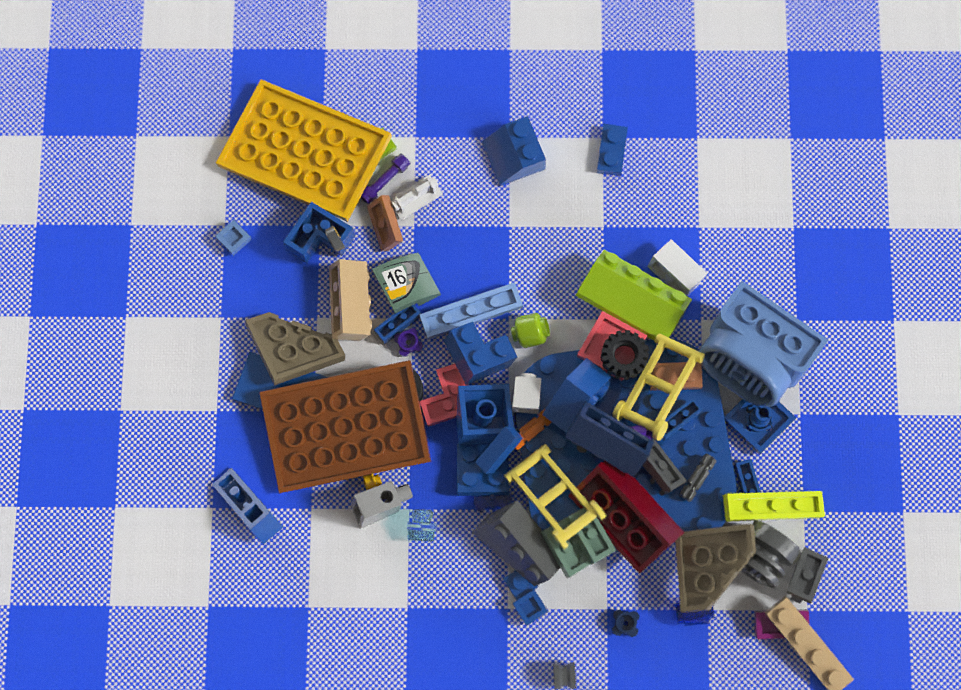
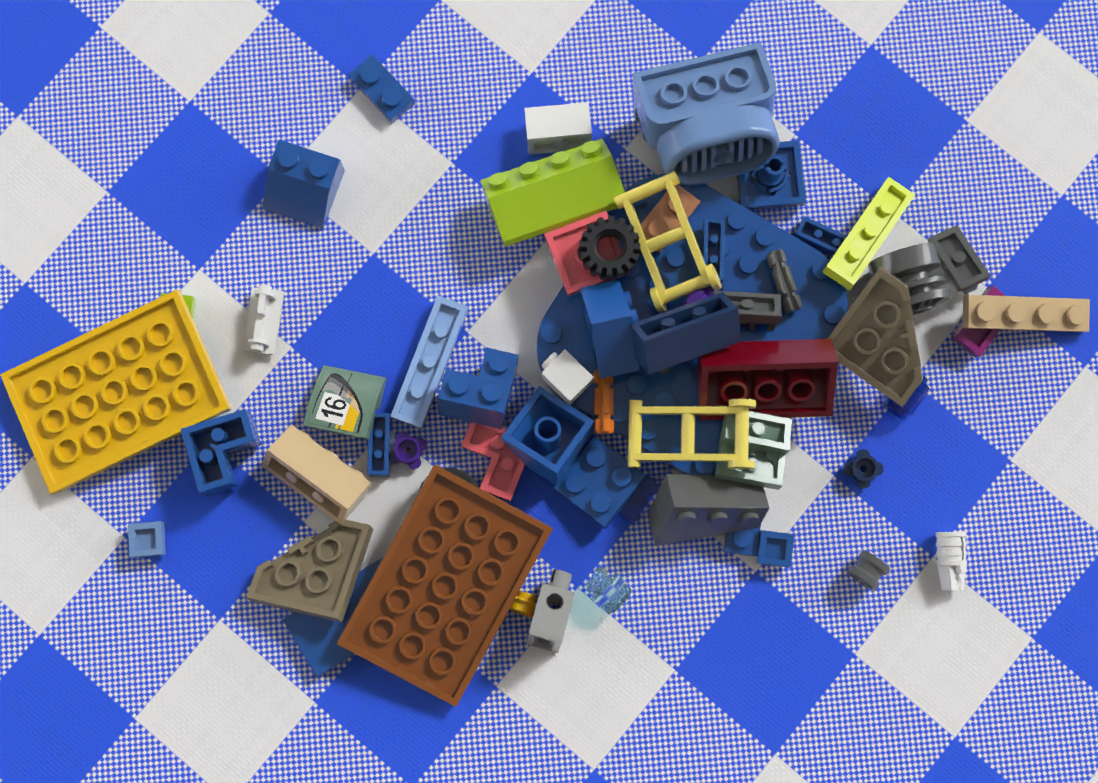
camera: 55 degrees left, 5 degrees up
(247, 506) = (442, 750): blue slope -> none
(334, 238) = (243, 437): dark grey tile -> none
(385, 223) = (265, 373): nougat plate -> none
(399, 164) = (215, 308): dark purple bar -> none
(499, 450) = (600, 450): blue piece -> none
(530, 330) = (499, 320): lime head -> none

